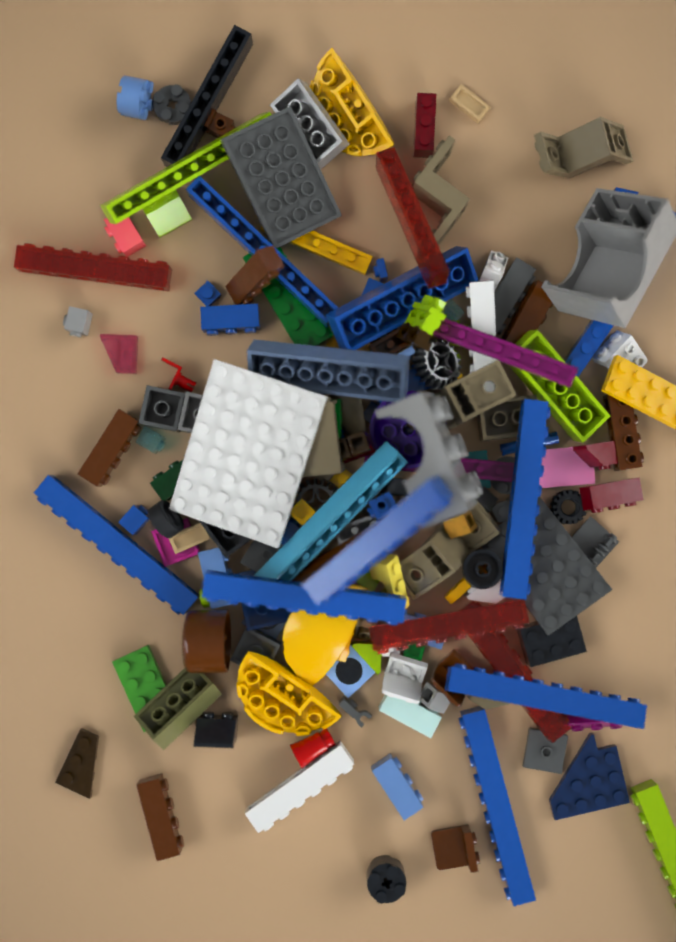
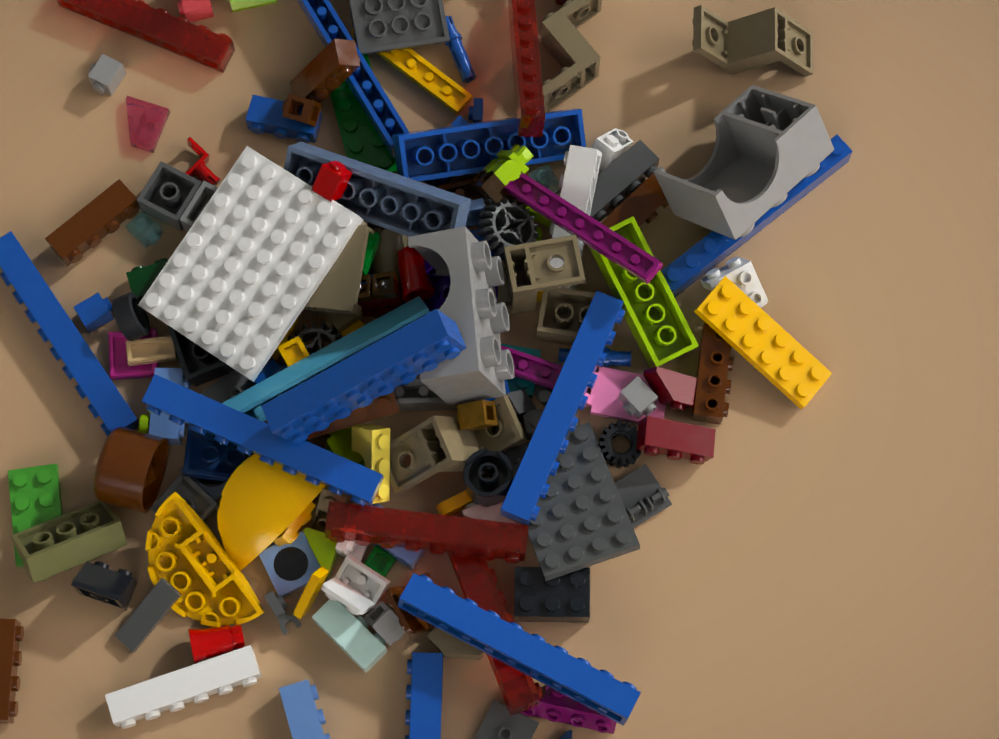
camera: 20 degrees right, 15 degrees down
(208, 294) = (267, 86): blue plate -> none
(237, 314) = (310, 112): none -> reddish brown brick
(256, 742) = (148, 615): none -> dark grey tile
(292, 371) = (332, 180): none -> red brick
(351, 223) = (458, 53): none -> blue pin
(372, 692) = (310, 592): none -> yellow tile
(378, 429) = (413, 275): none -> red plant
(574, 470) = (638, 398): none -> light grey brick

